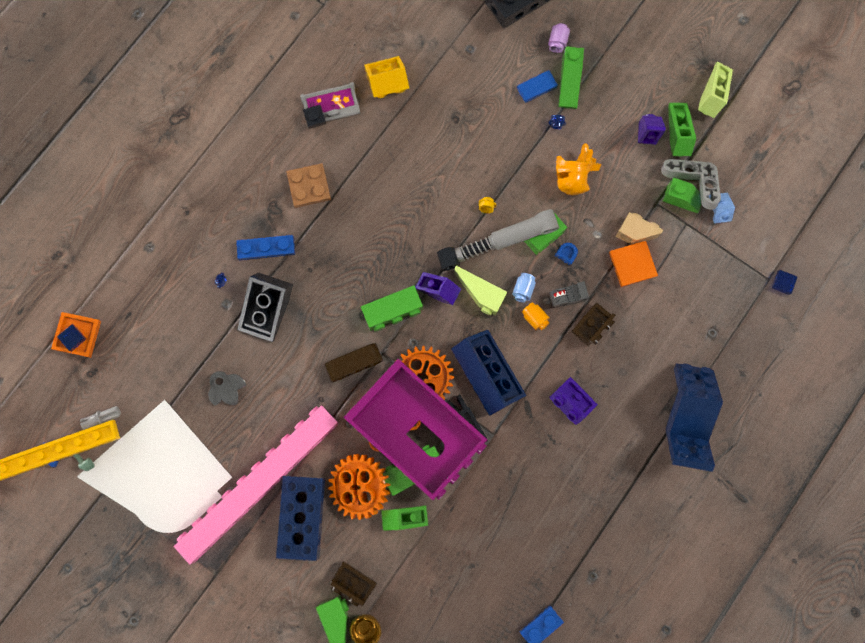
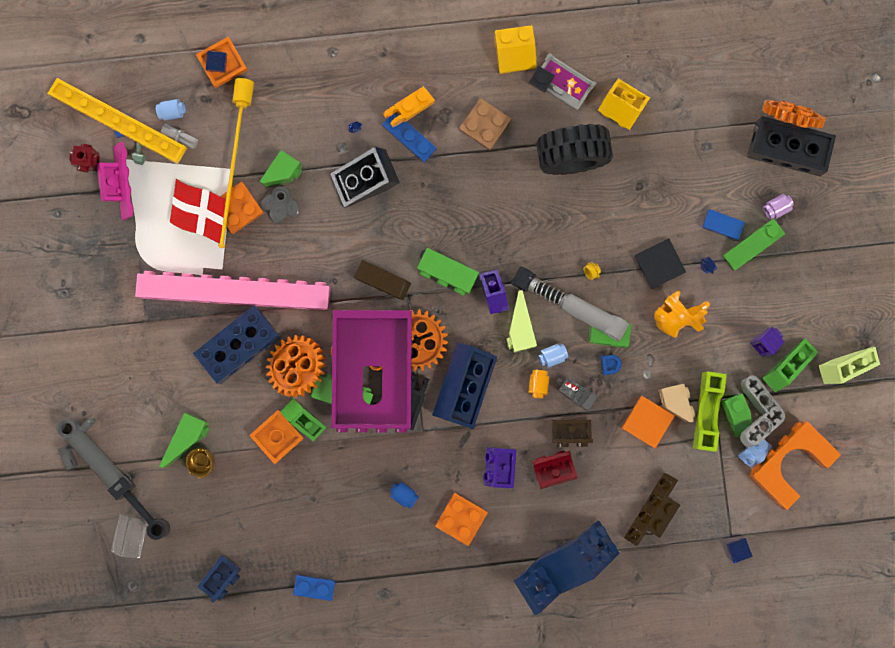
camera: 50 degrees right, 5 degrees up
(45, 507) = (84, 158): none -> dark red brick
(73, 406) = (170, 110): none -> light blue brick
(87, 500) = (114, 181): none -> dark pink bracket
(172, 451) = (200, 209): none -> flag
(196, 423) = (242, 208): none -> orange plate
(201, 363) = (281, 170): none -> bright green slope
(244, 226) = (410, 106): none -> light orange hinge
(274, 115) = (515, 49): none -> yellow slope
(352, 584) = (223, 424): dark brown bracket -> none
(388, 135) = (574, 149): none -> black tyre
(399, 551) = (276, 437): none -> orange plate
(525, 153) = (660, 263): none -> black tile
(530, 492) = (403, 494): none -> blue brick
(586, 465) = (461, 519): none -> orange plate
(610, 361) = (554, 469): none -> dark red bracket
(651, 198) = (710, 396): none -> lime arch
(705, 317) = (656, 511): none -> dark brown bracket
(747, 212) = (768, 473): none -> orange arch

